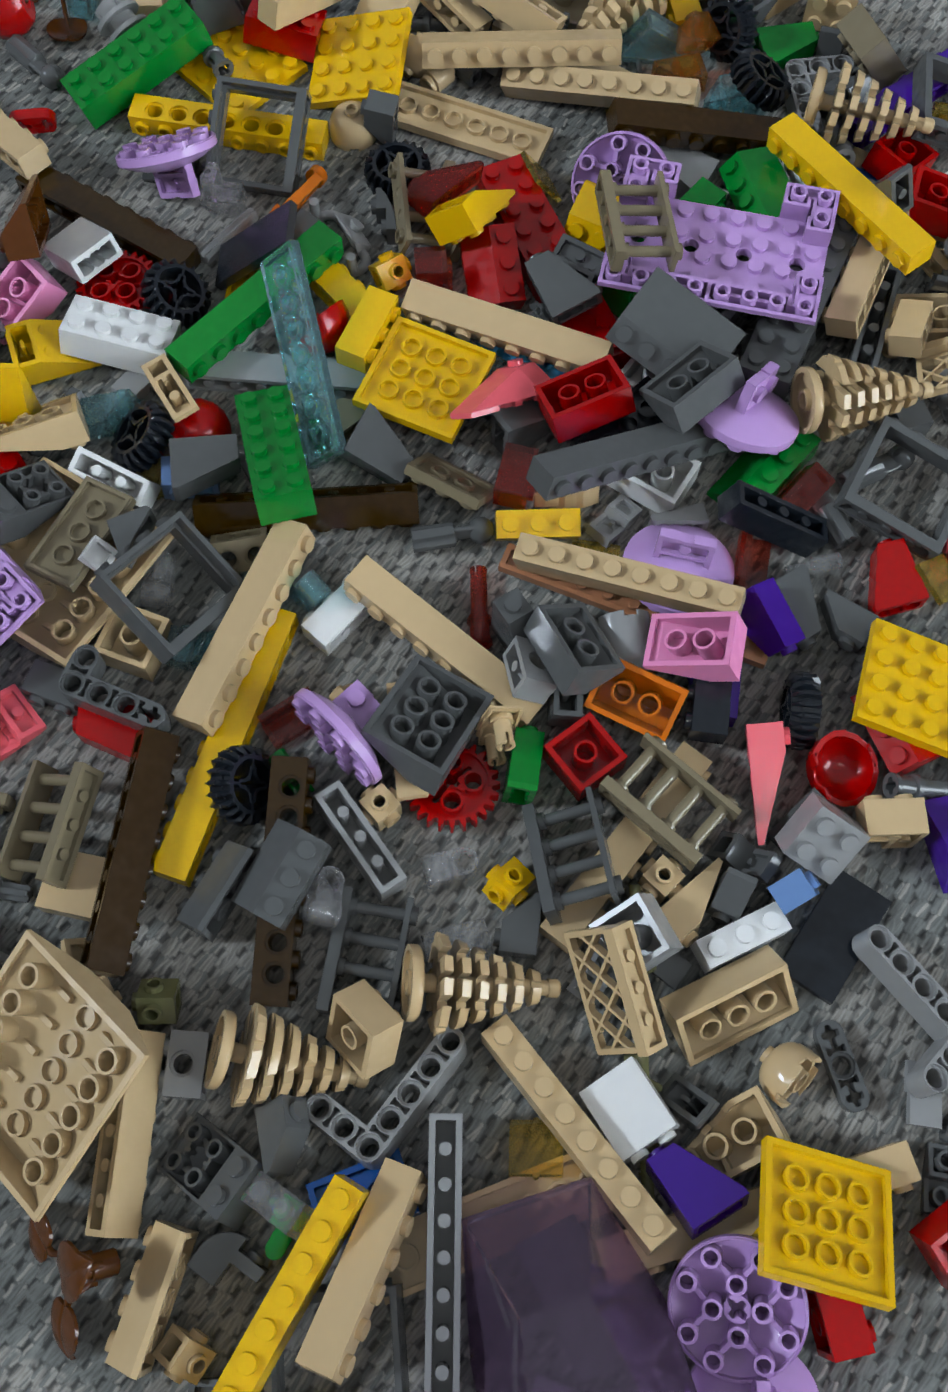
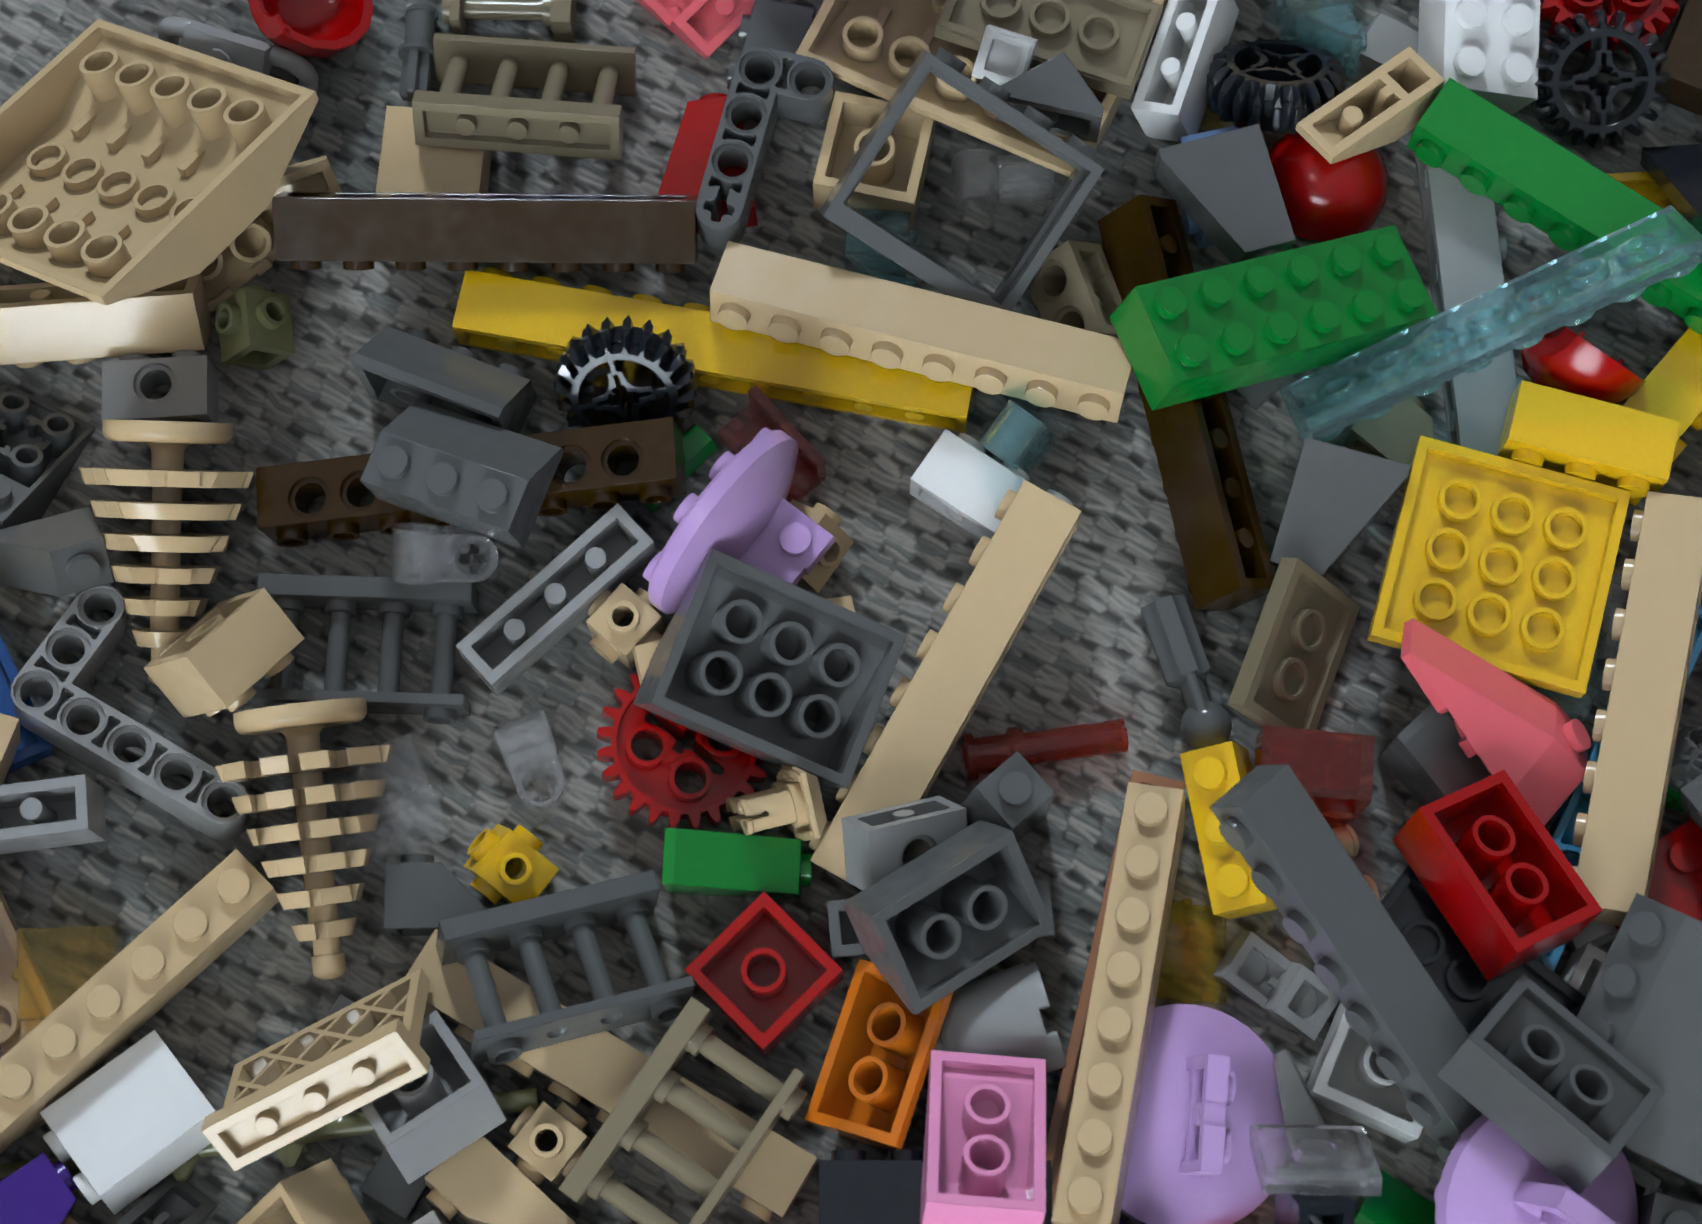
camera: 85 degrees right, 5 degrees up
(711, 502) = (1314, 1160): none -> clear tile

